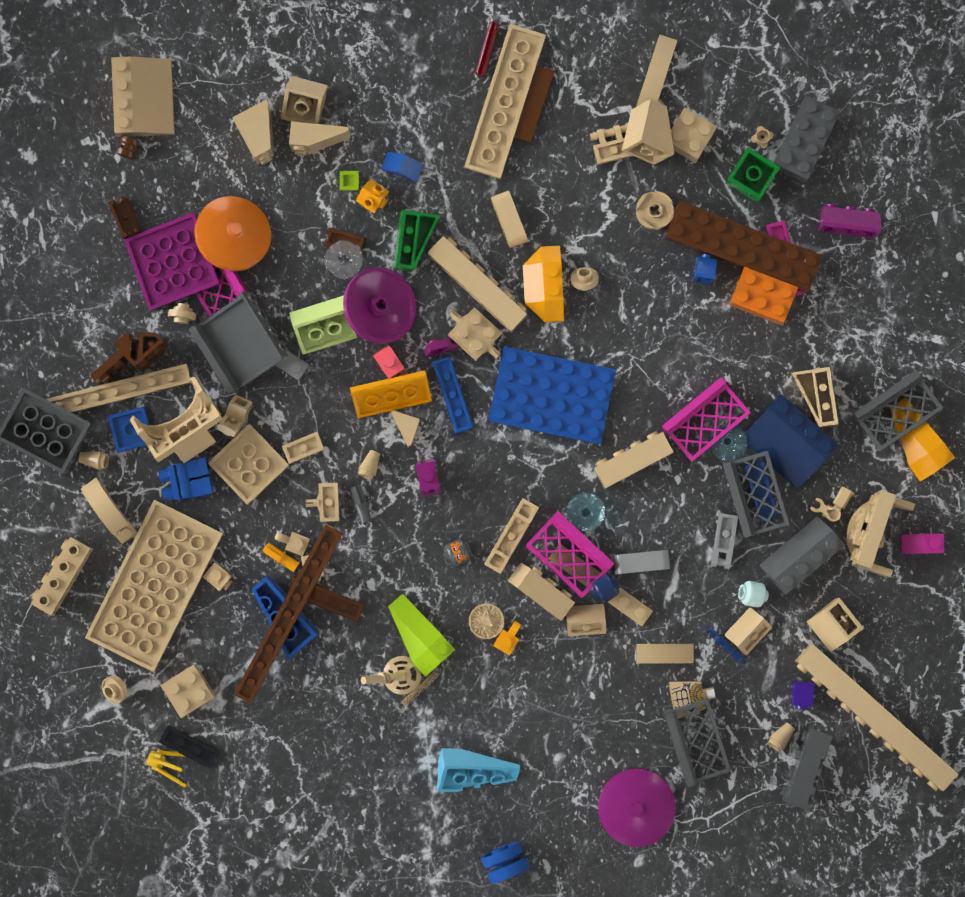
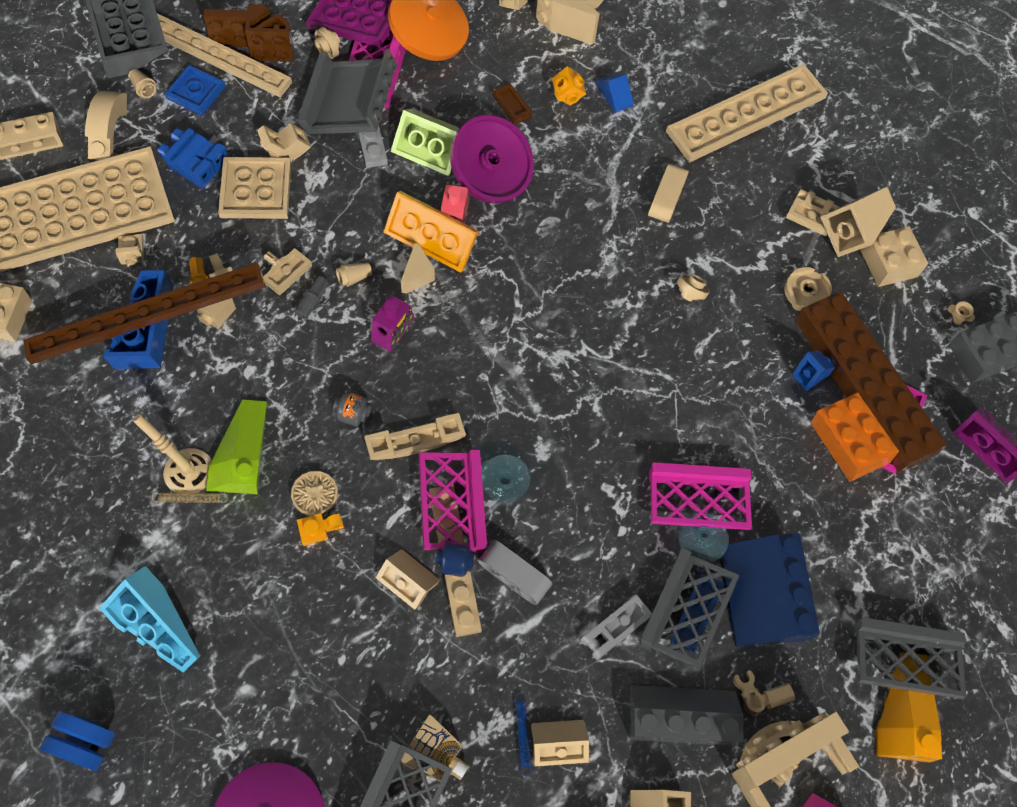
camera: 35 degrees right, 20 degrees down
(185, 434) = (229, 116): tan piece -> none
(303, 447) = (313, 213): tan plate -> none
(334, 602) = (199, 350): reddish brown tile -> none
(335, 265) = (500, 98): clear plate -> none
(349, 180) = (558, 63): lime plate -> none
(412, 237) = (571, 138): green wedge -> none
(438, 347) = (510, 234): magenta plate -> none
(452, 395) = (483, 283): blue tile -> none
(475, 334) = (551, 251): tan plate -> none
(477, 284) = (592, 217): tan brick -> none
(487, 48) = (766, 69): dark red axle -> none
(534, 103) = (770, 134): reddish brown tile -> none
(542, 590) = (393, 511): tan wedge -> none
(544, 284) = (650, 266): light orange wedge -> none
(552, 395) = (572, 358): blue plate -> none
(633, 460) = (595, 470): tan brick -> none
(657, 69) = (912, 186): tan slope -> none
(664, 653) = (452, 682): tan slope -> none
(752, 175) = (929, 329): green brick -> none
(753, 594) = (599, 707): light aqua head -> none
(819, 394) = (837, 569): tan wedge -> none

